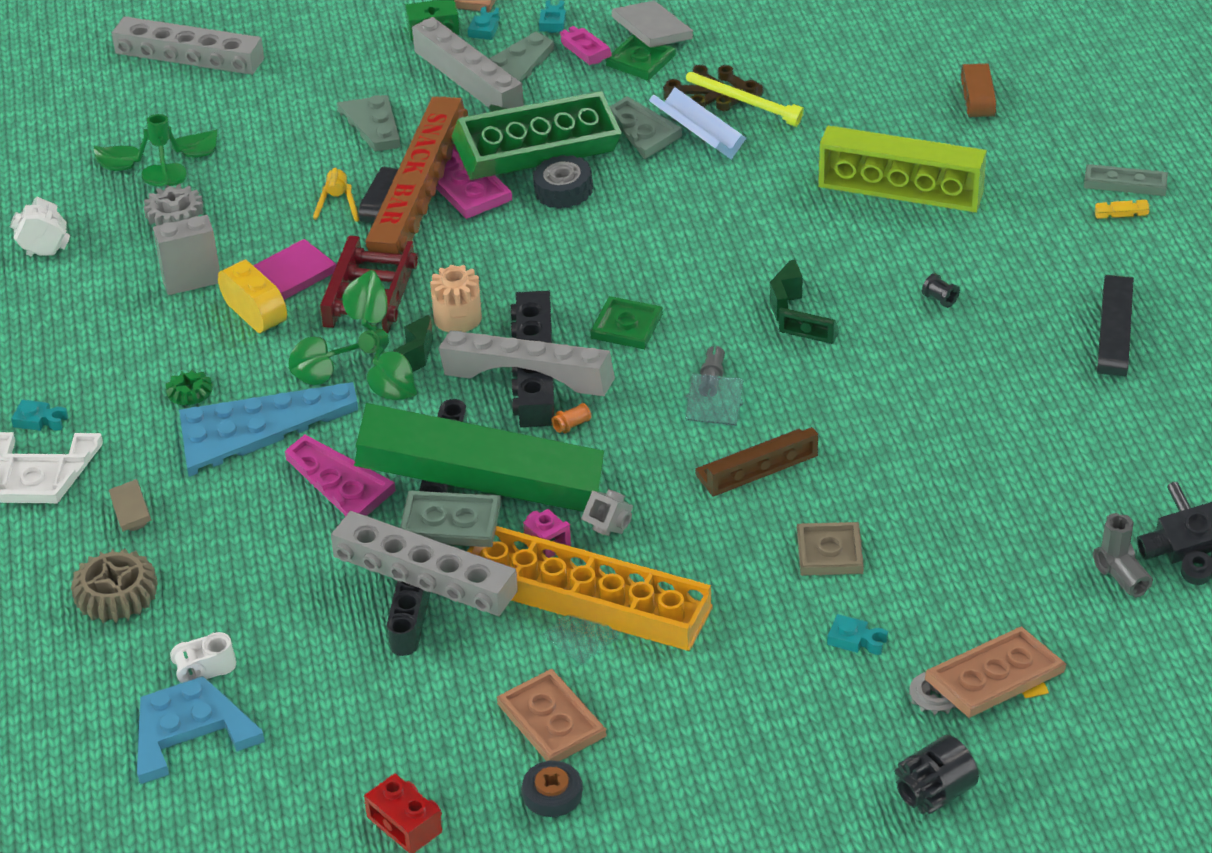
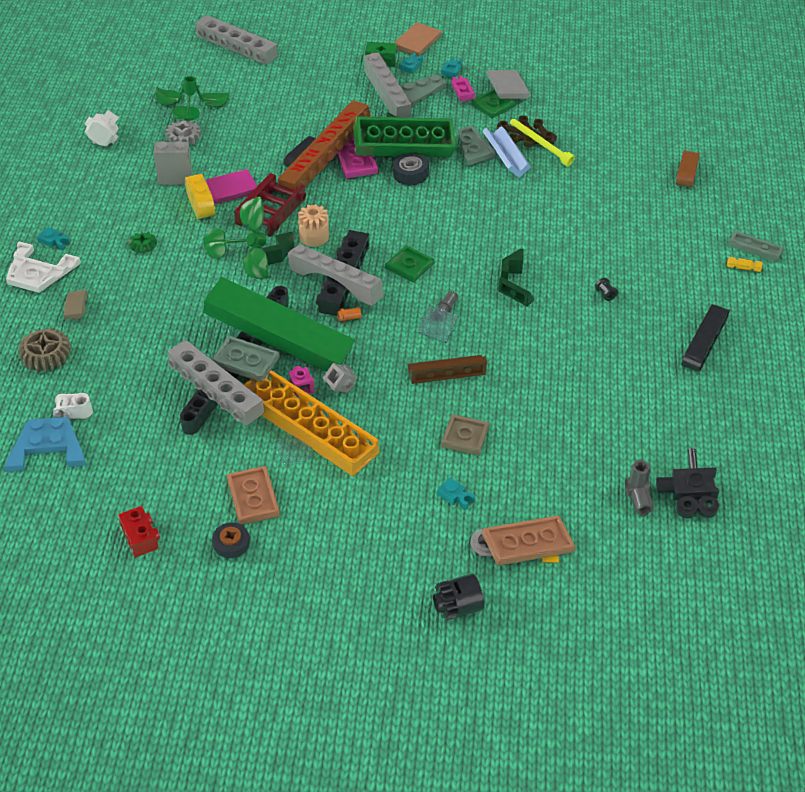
camera: 15 degrees right, 5 degrees up
(254, 423) = (170, 272): dark azure wing -> none
(336, 185) = (279, 141): yellow plant -> none
(337, 478) = (201, 326): dark pink wing -> none
(373, 120) = (320, 107): sand green wing -> none
(902, 168) = (615, 207): lime brick -> none

